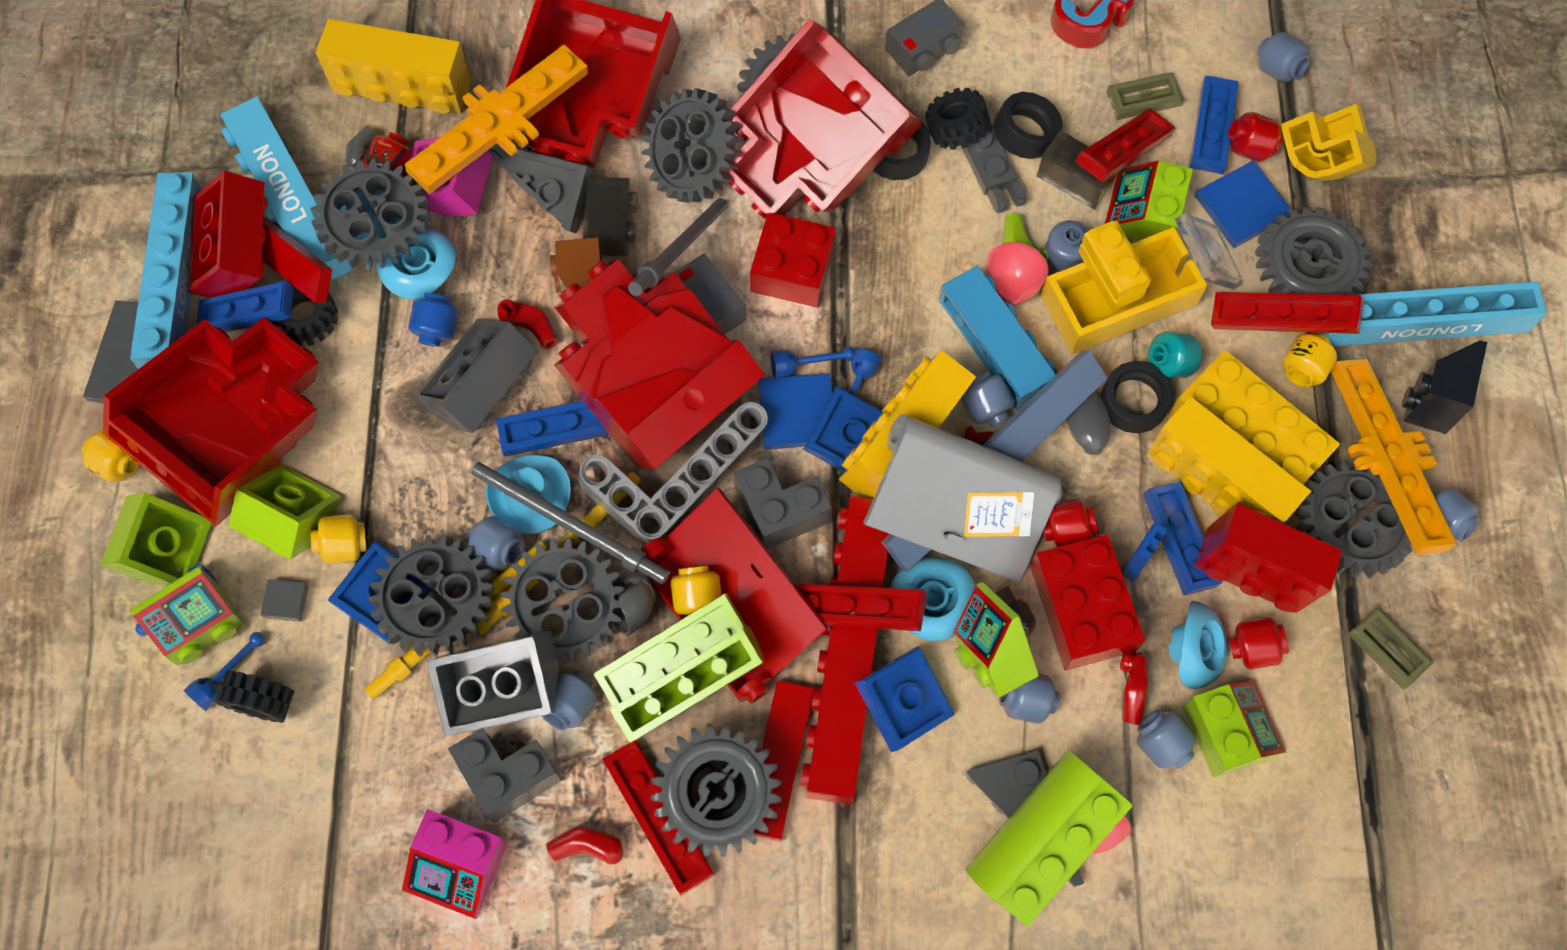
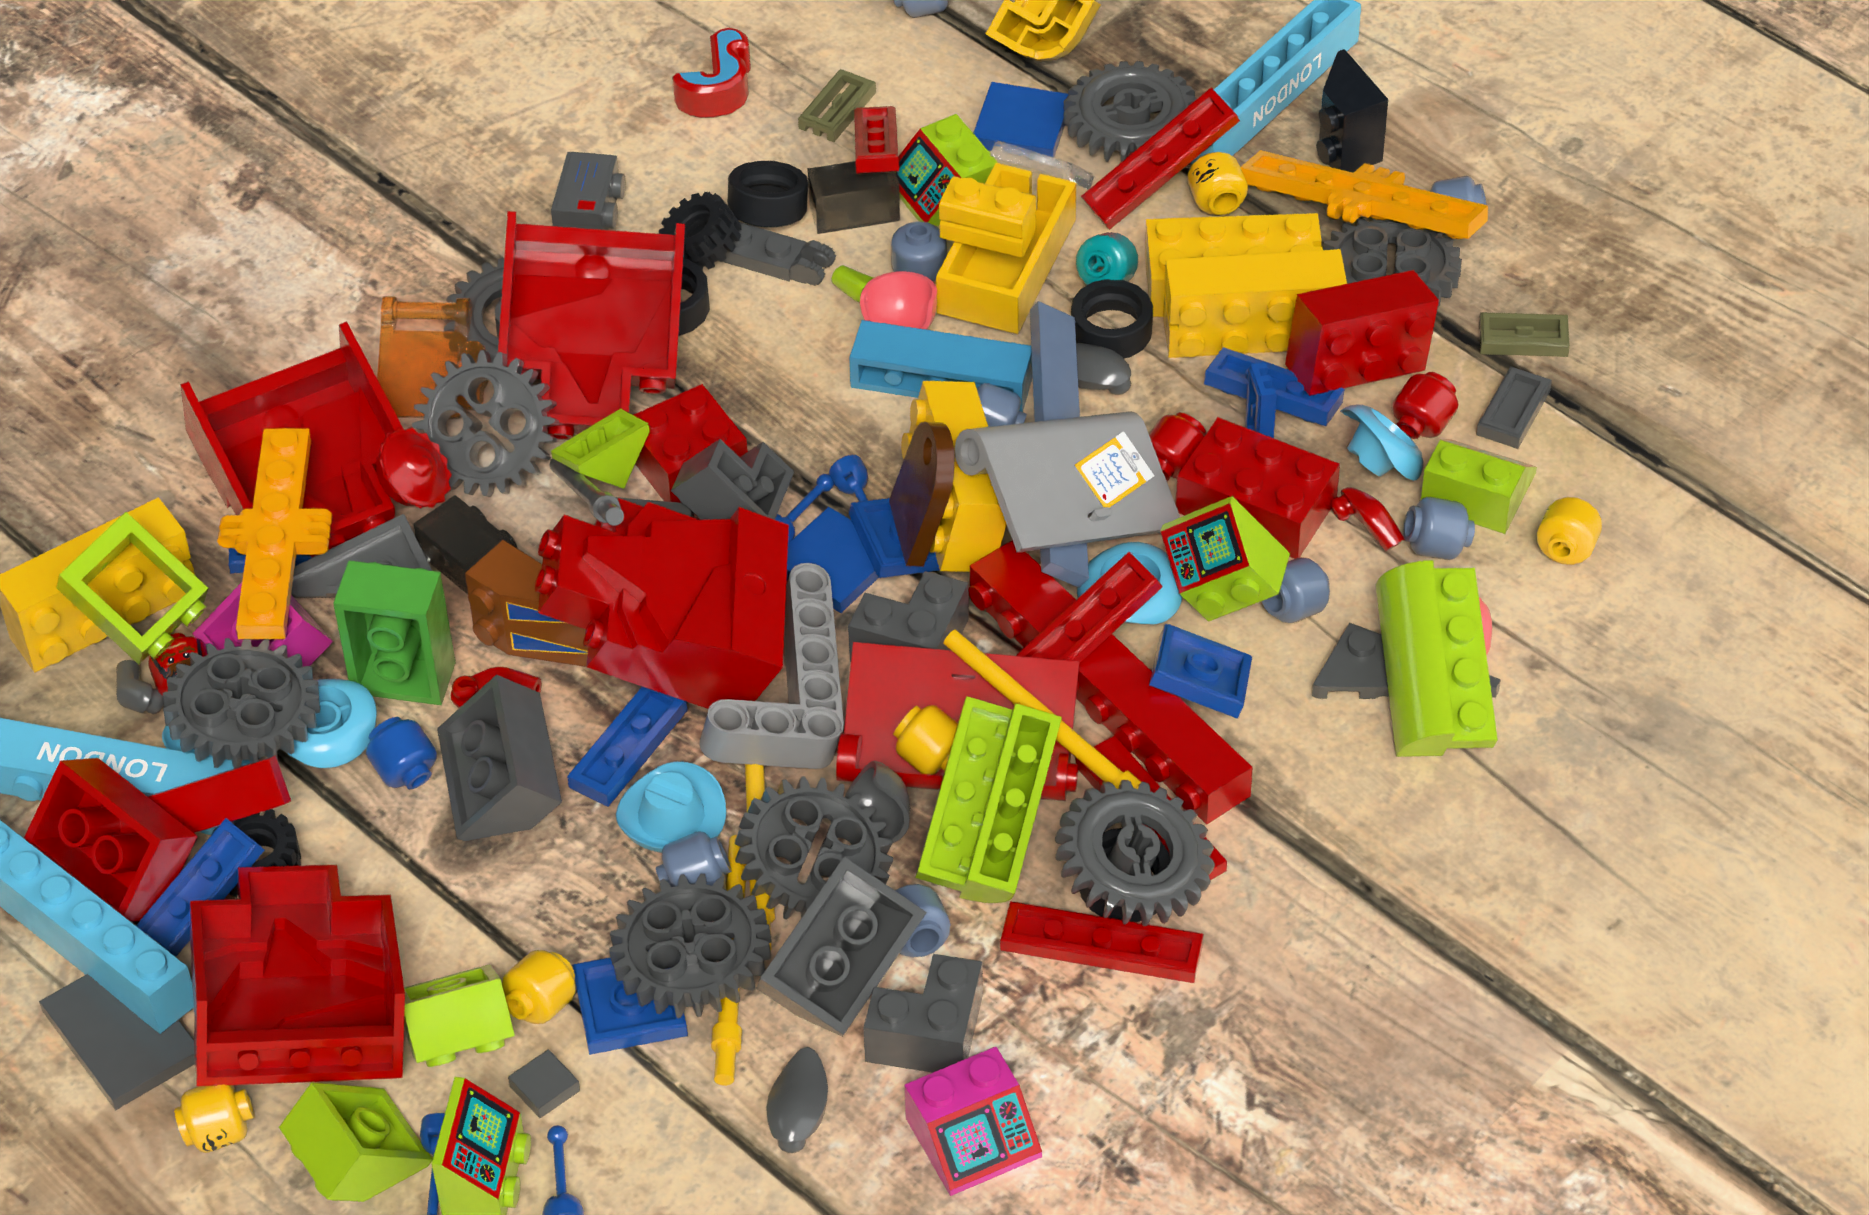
camera: 45 degrees left, 20 degrees down
(254, 696) = (626, 1156): black tyre -> none
(378, 54) = (103, 551): none -> lime window
(386, 749) = (797, 1100): none -> dark grey arm
(491, 240) = (395, 631): none -> bright green brick
(586, 841) = (1066, 1007): red arm -> none
(614, 142) = (413, 469): none -> red piece
(631, 558) = (841, 760): dark grey bar -> none
(714, 68) = (412, 356): none -> clear orange piece
(732, 223) = (606, 448): none -> lime slope
(771, 733) = (1018, 694): none -> yellow bar
(774, 324) = (721, 481): none -> dark grey brick
(860, 425) = (923, 490): none -> reddish brown tile
(1212, 124) = (924, 78): blue plate -> none
(1248, 823) = (1571, 528): none -> yellow head
(1255, 136) = (974, 60): red head -> none
(1321, 695) = (1514, 407): none -> dark grey tile

